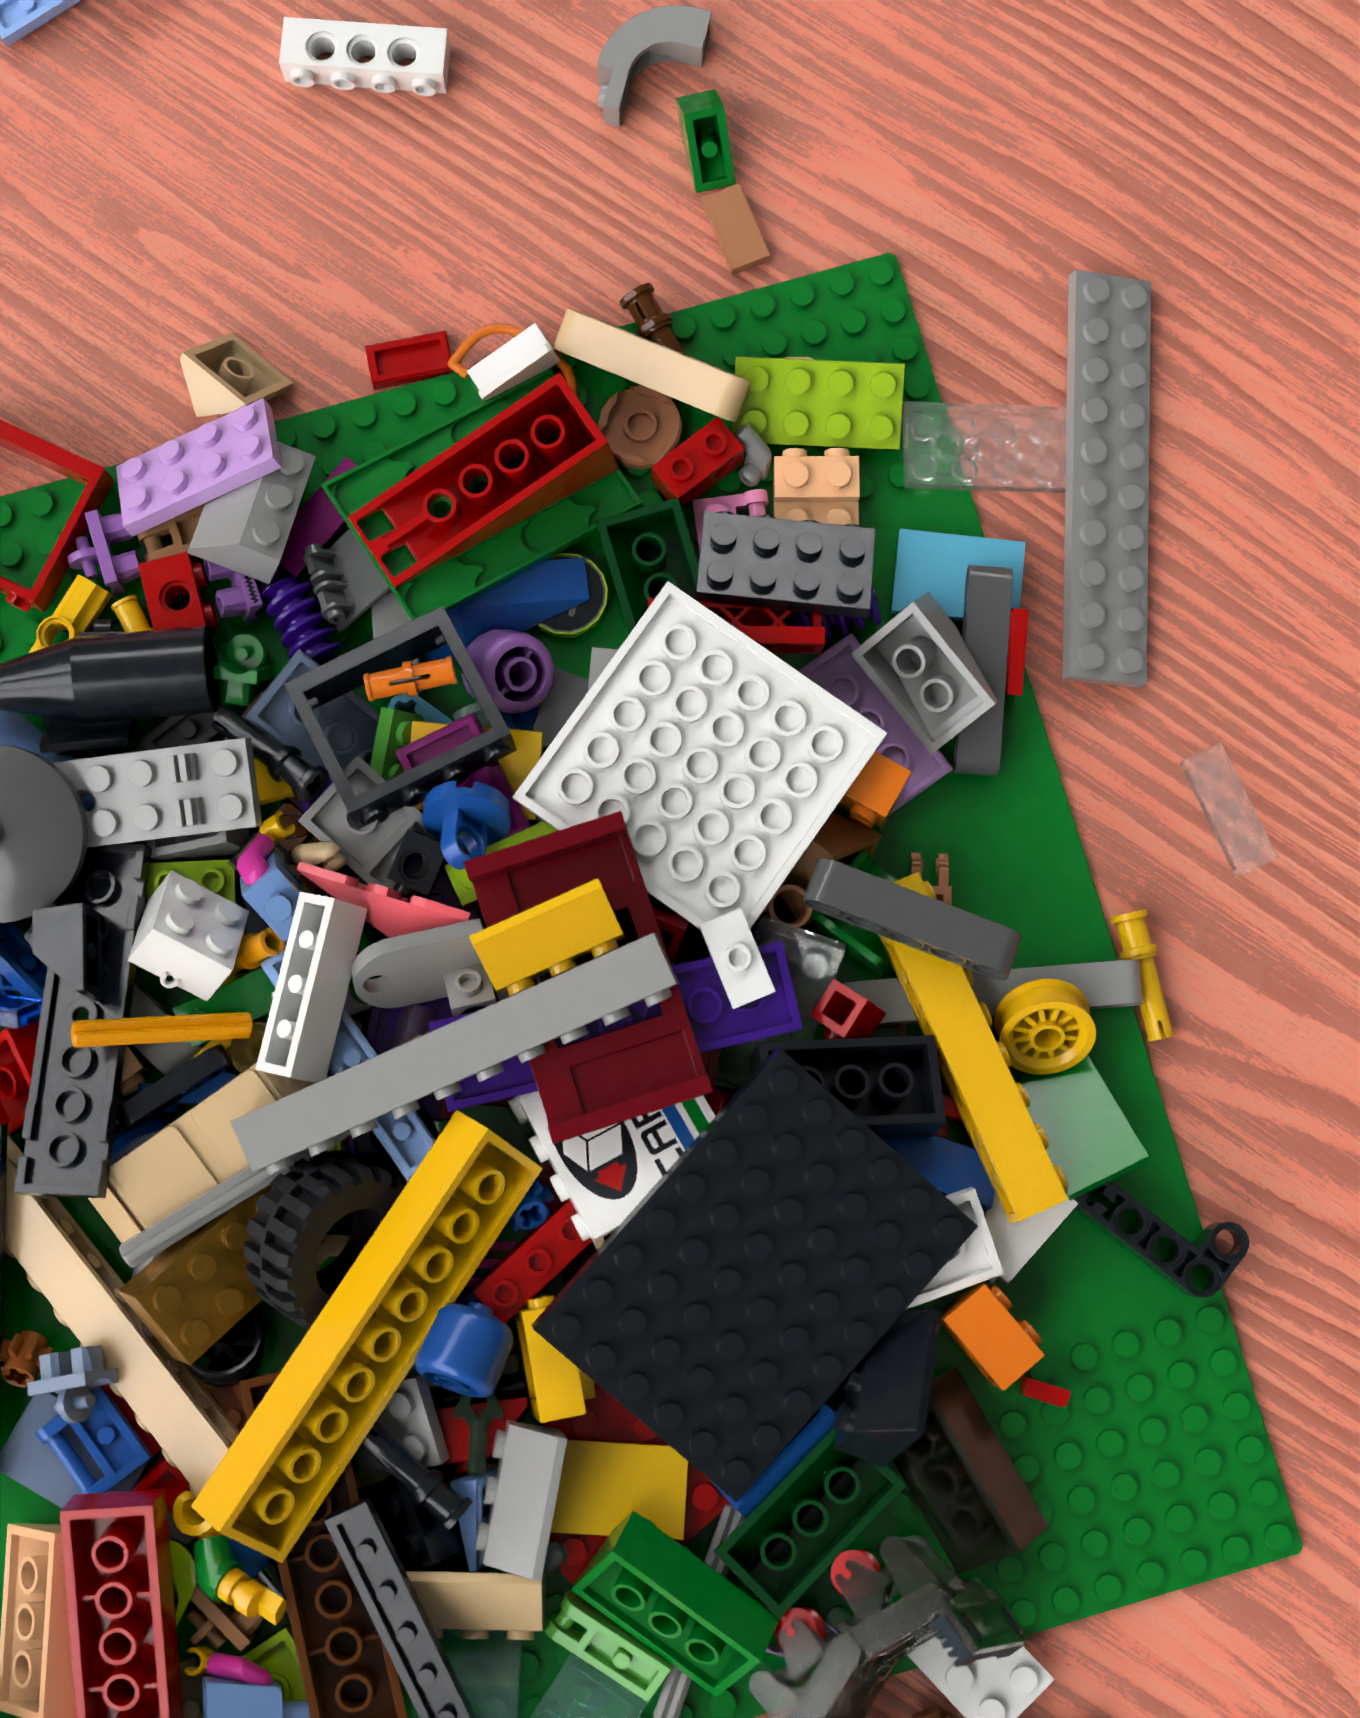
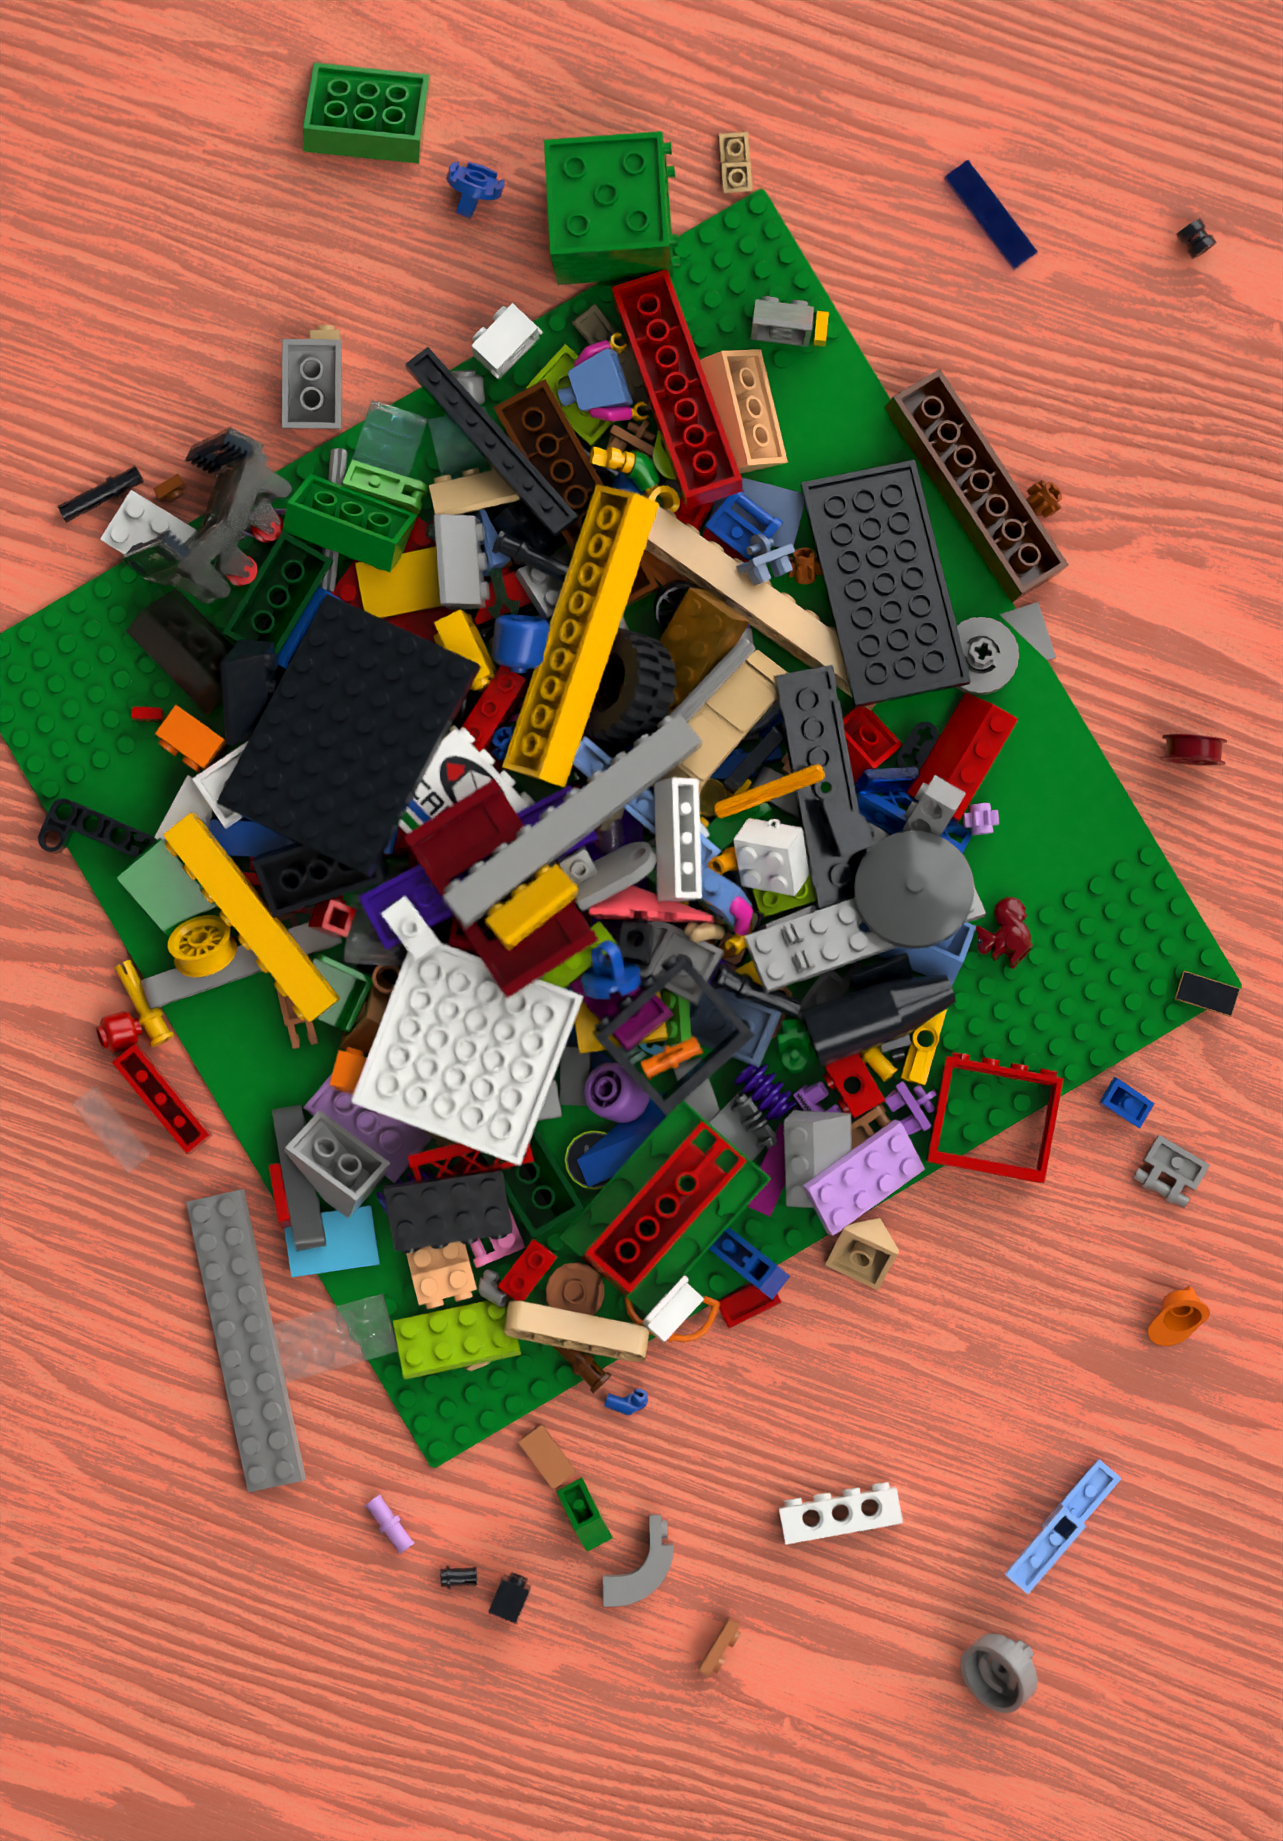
camera: 165 degrees right, 5 degrees up
(387, 395) = (749, 1262): none -> blue slope
(609, 268) = (628, 1405): none -> blue arm
(833, 50) = (510, 1597): none -> black brick
(894, 105) = (458, 1577): none -> black pin
(912, 919) = (305, 986): dark grey beam -> none
(969, 193) = (389, 1524): none -> lavender pin
(1149, 830) = (162, 1099): none -> red brick
(1188, 942) = (118, 1031): none -> red head

